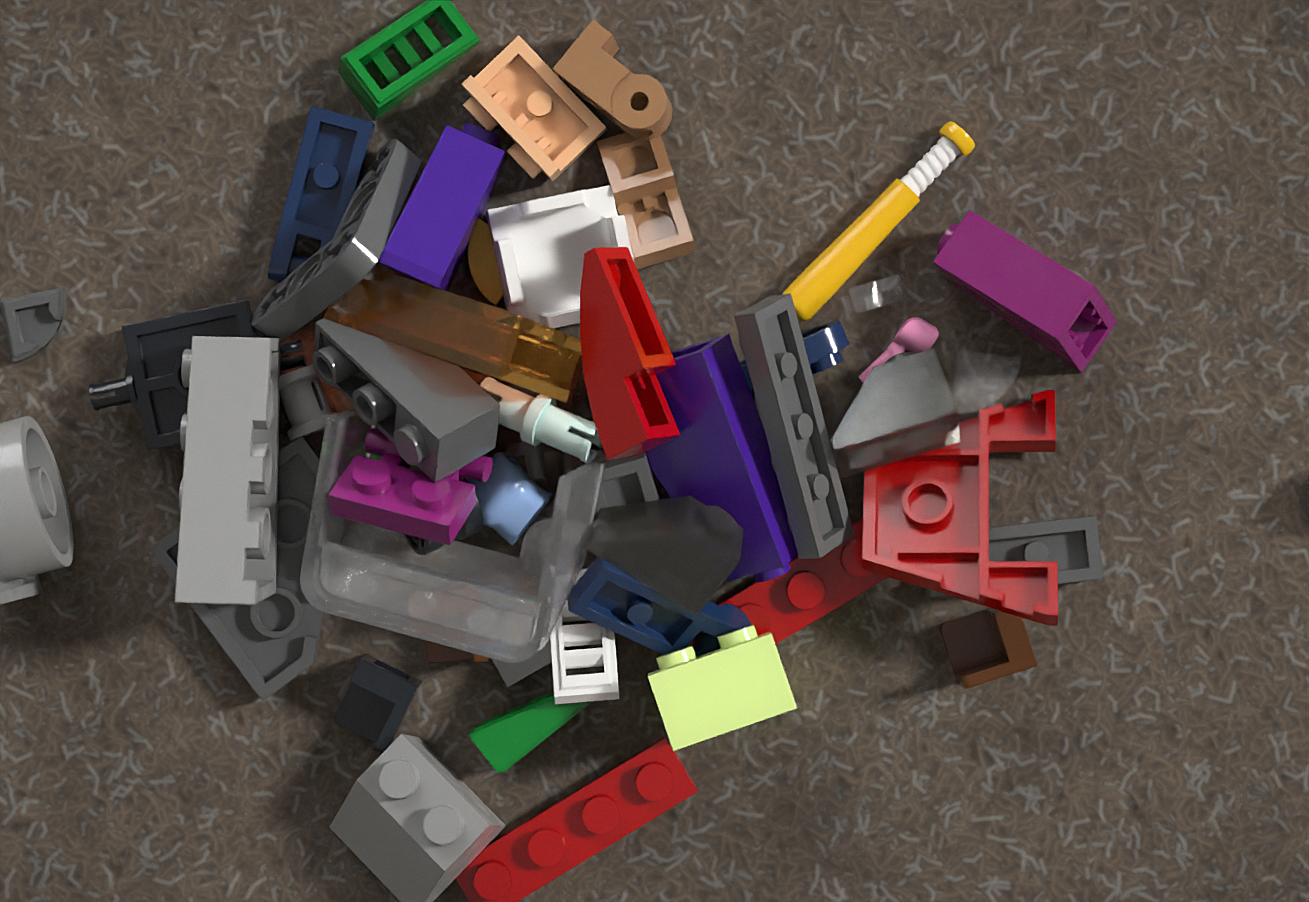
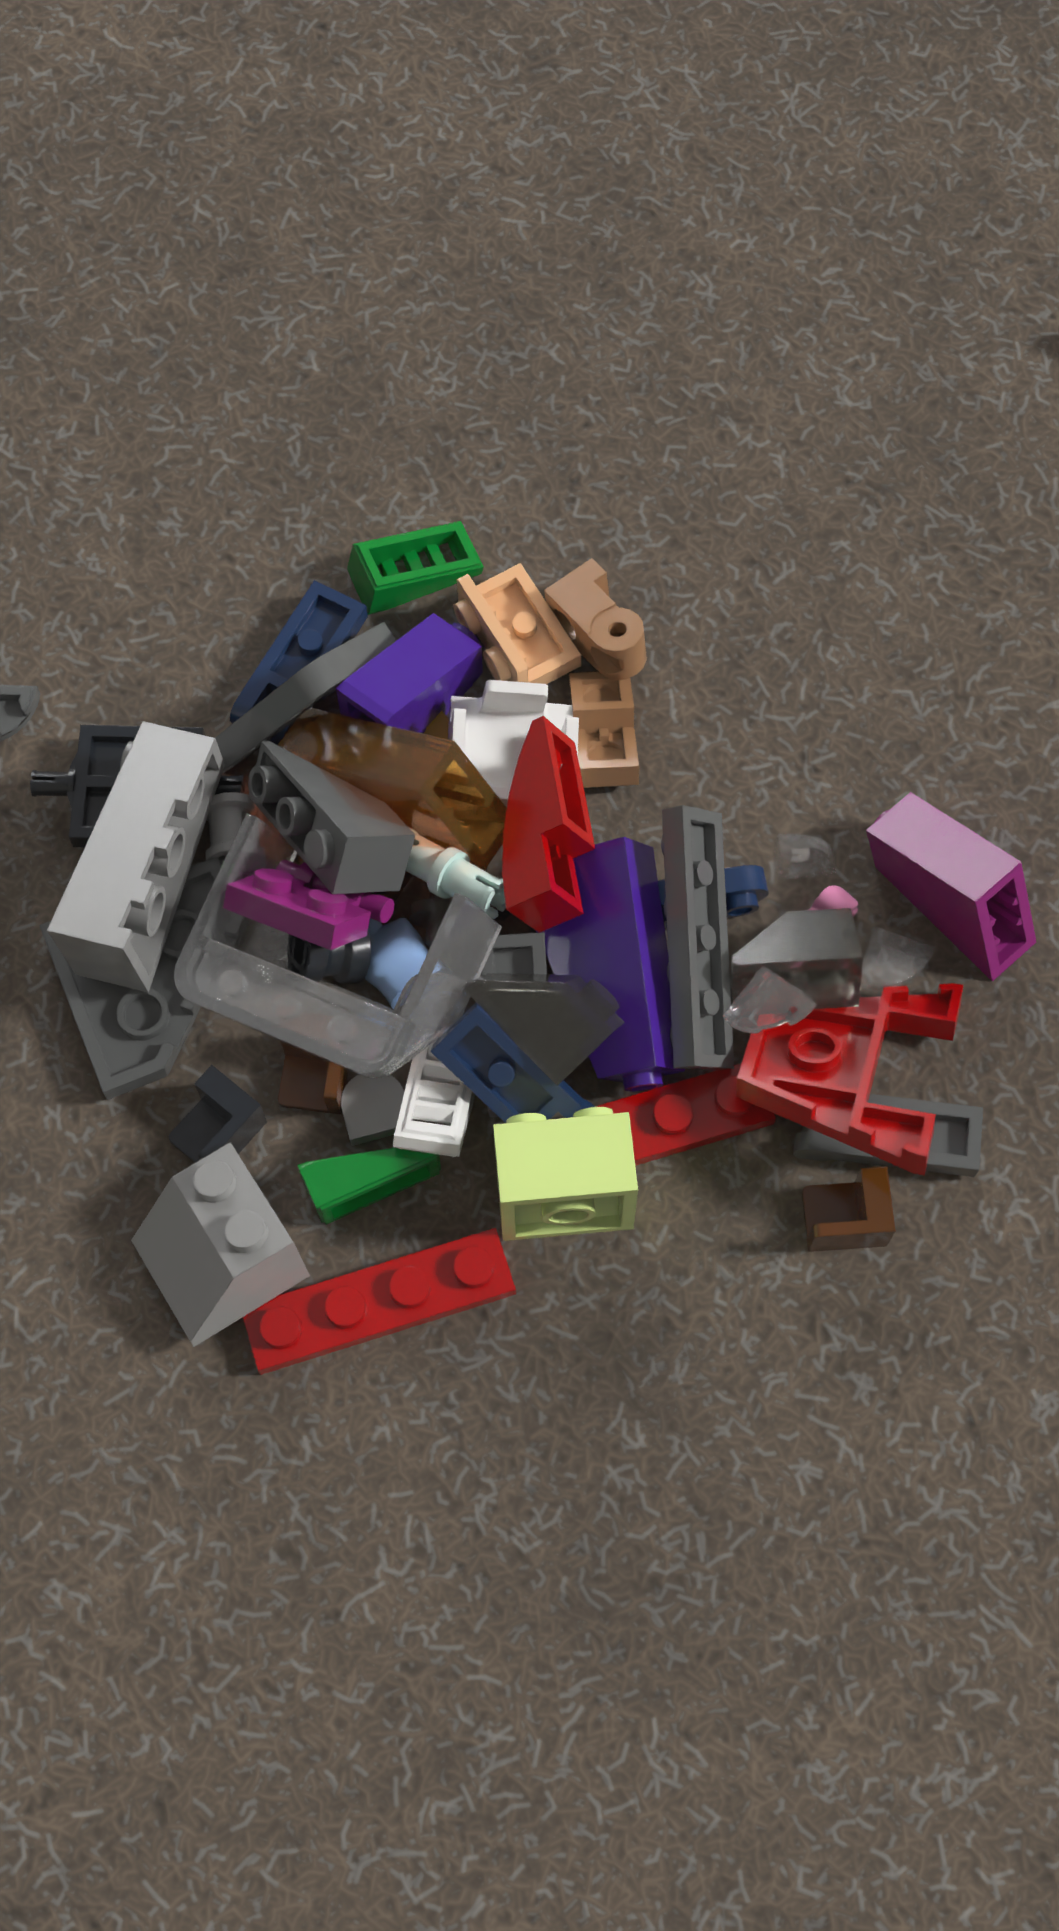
camera: 10 degrees right, 20 degrees down
(862, 237) = (799, 809): yellow piece -> none
(873, 471) = (768, 1003): none -> clear tile

